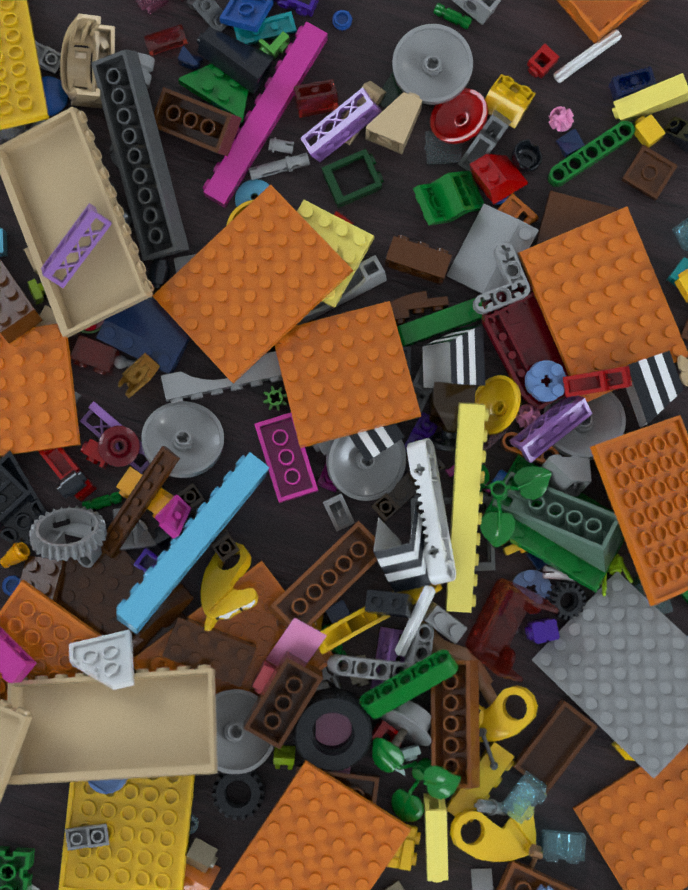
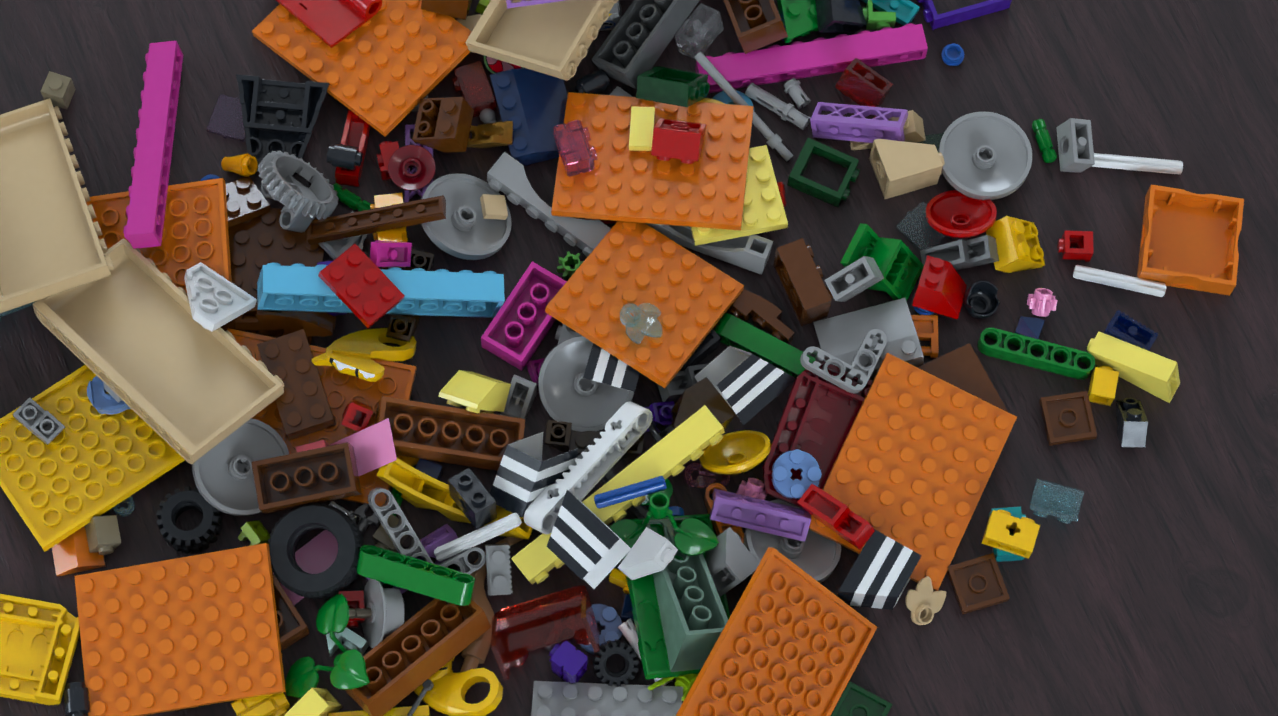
camera: 45 degrees right, 15 degrees down
(105, 398) = (443, 124): none -> reddish brown slope
(183, 171) = (699, 31): none -> clear brick
(184, 557) = (361, 285): none -> red plate
(191, 414) = (494, 207): none -> tan tile
(201, 329) = (574, 147): none -> clear pink brick
(210, 225) = (672, 86): none -> dark green window
(225, 272) = (641, 128): none -> light yellow tile
(256, 256) = (678, 140): none -> red slope
(266, 629) = (356, 415): none -> red brick
(301, 190) = (774, 140): none -> light grey bar
(313, 537) = (476, 392): none -> light yellow slope
(367, 392) = (642, 323): none -> clear light blue plate
(450, 227) = (854, 279): none -> light grey brick
(474, 501) = (630, 492): none -> blue axle
(485, 560) = (585, 542): none -> sticker
(524, 524) = (648, 555): none -> white slope

